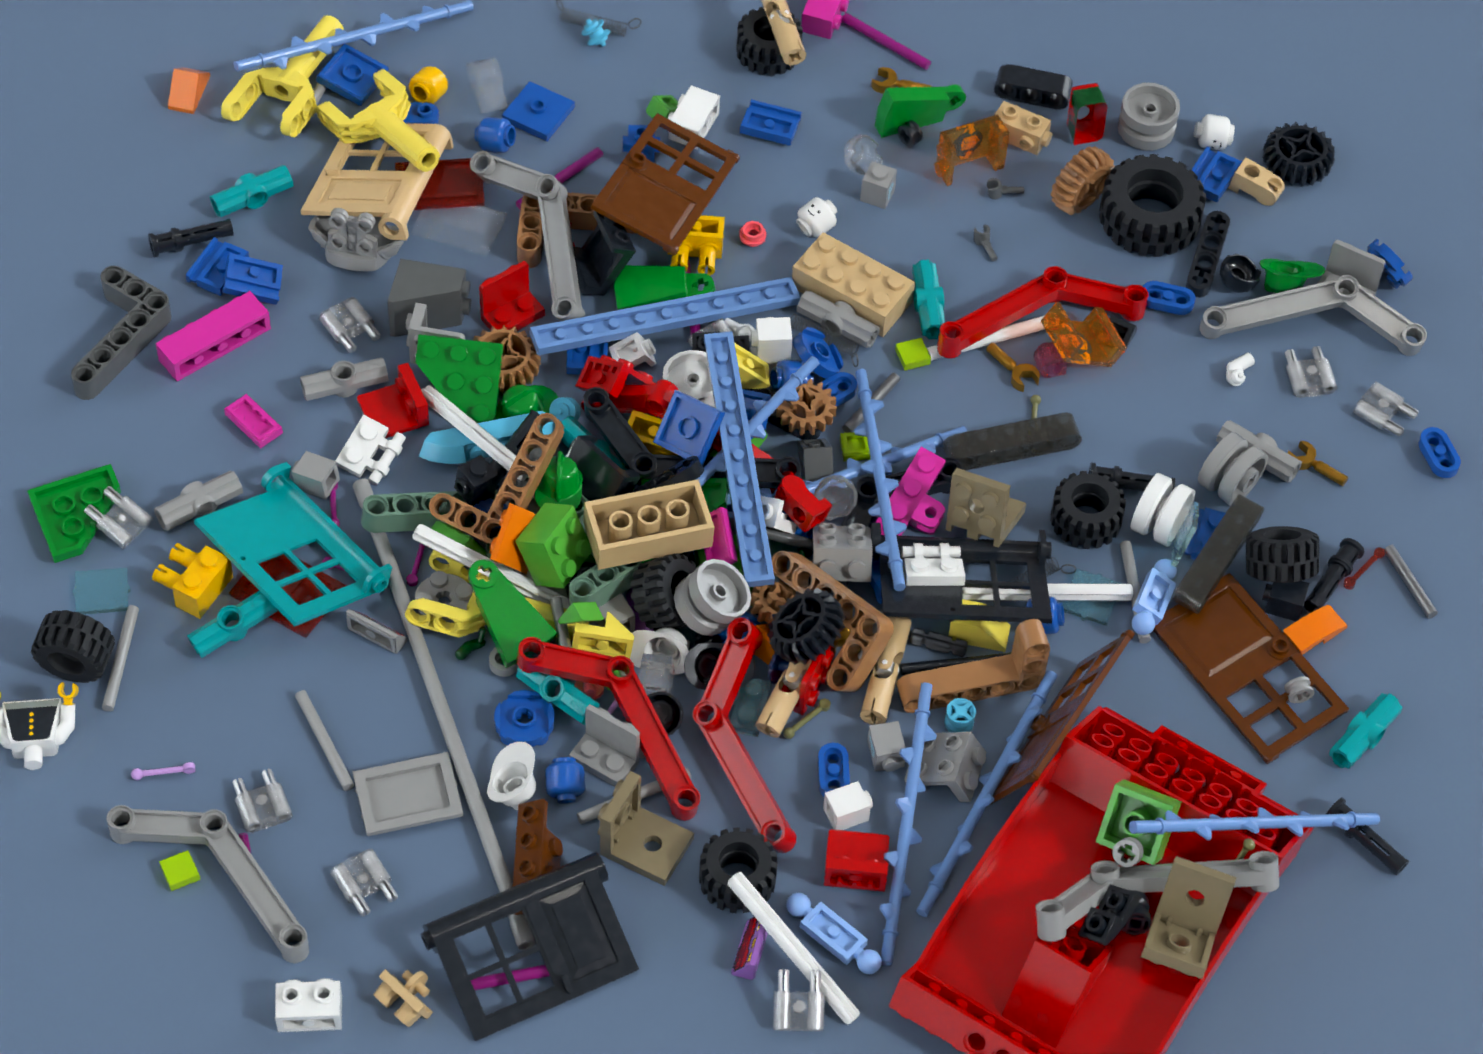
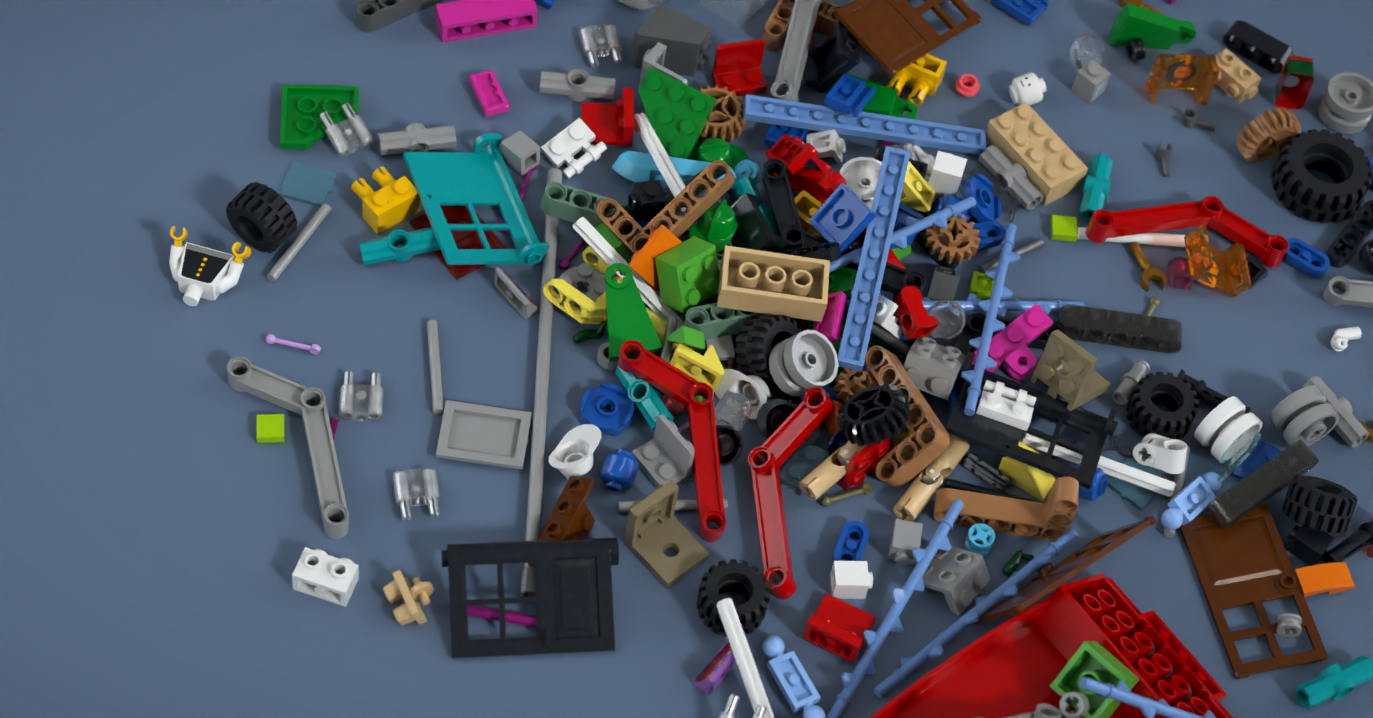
camera: 15 degrees right, 0 degrees up
(638, 290) = (849, 95): none -> blue plate
(1003, 725) = (1014, 562): none -> dark green piece
(1045, 494) = (1129, 381): none -> light grey pin
(1109, 556) = (1164, 453): none -> white piece

